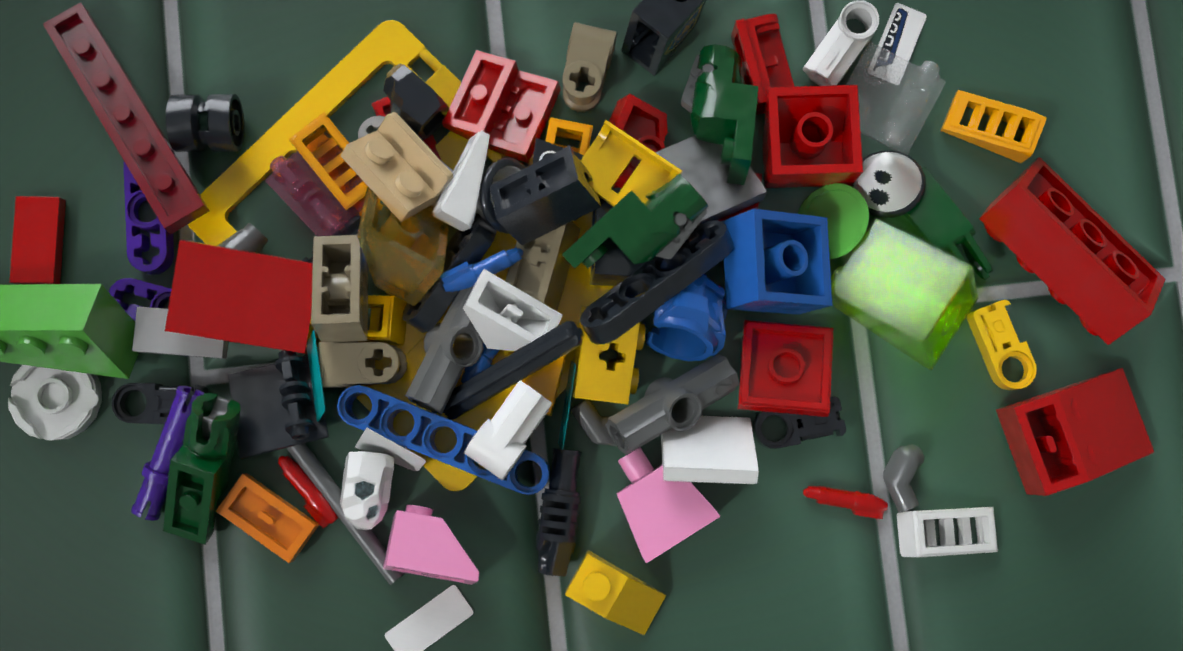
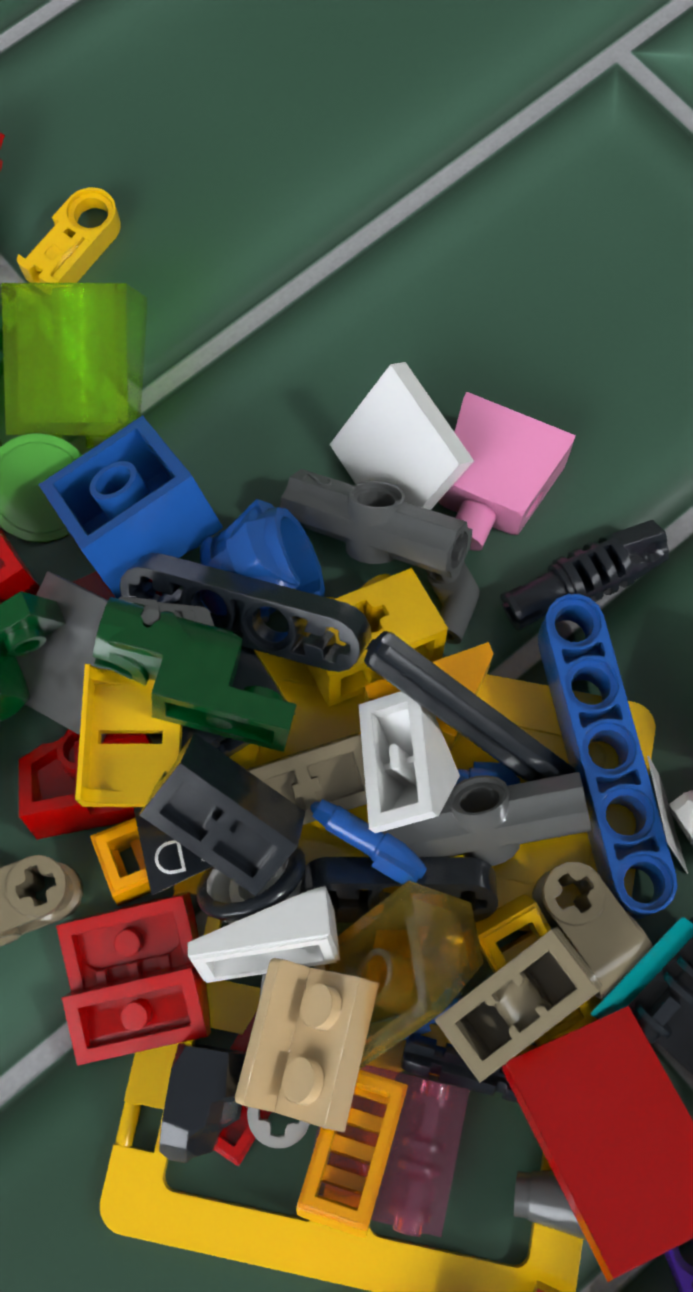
camera: 120 degrees left, 10 degrees down
(503, 438) = (564, 666): white piece -> none
(567, 404) = (487, 632): teal sticker -> none
(614, 593) = (631, 466): yellow slope -> none
(786, 368) = (247, 435): red tile -> none
(802, 426) = (295, 388): black piece -> none
(860, 503) = (345, 285): red piece -> none
(899, 474) = (284, 258): dark grey arm -> none
(918, 532) = (333, 211): white slope -> none
(1075, 433) = (128, 120): red slope -> none

